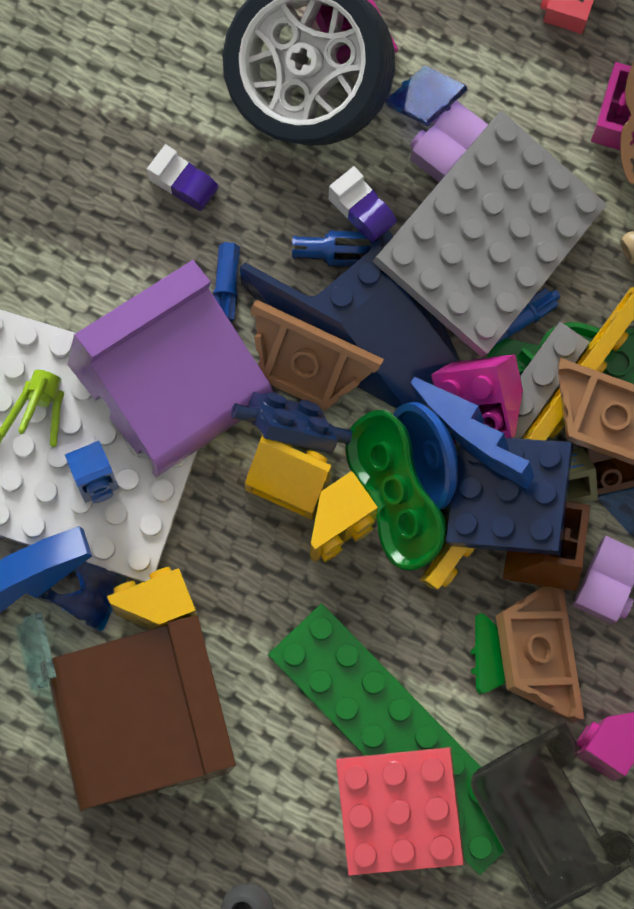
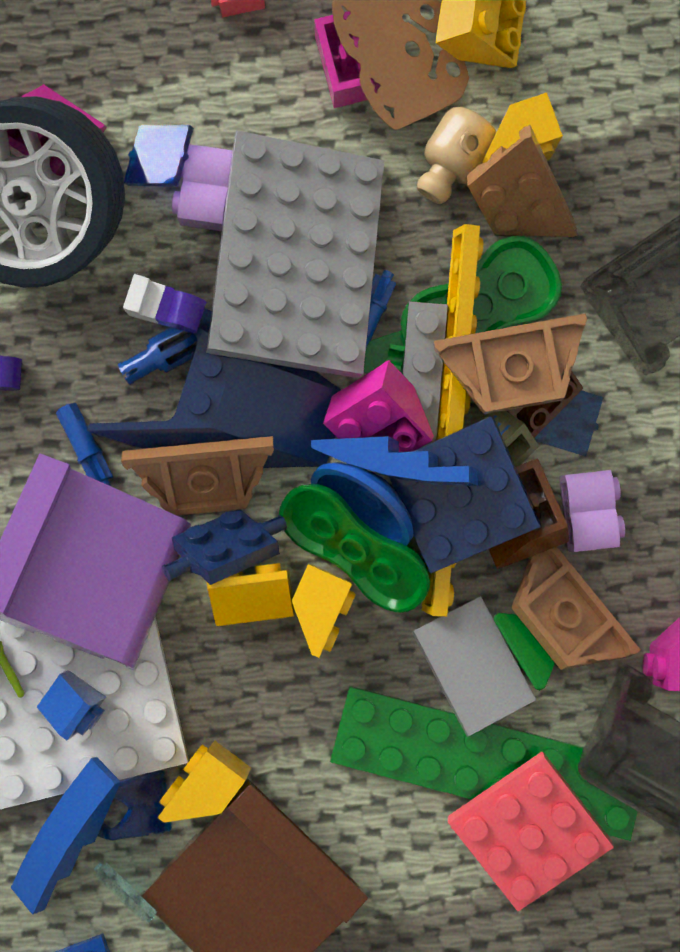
camera: 30 degrees left, 10 degrees up
(435, 647) = (474, 666): none -> light grey tile

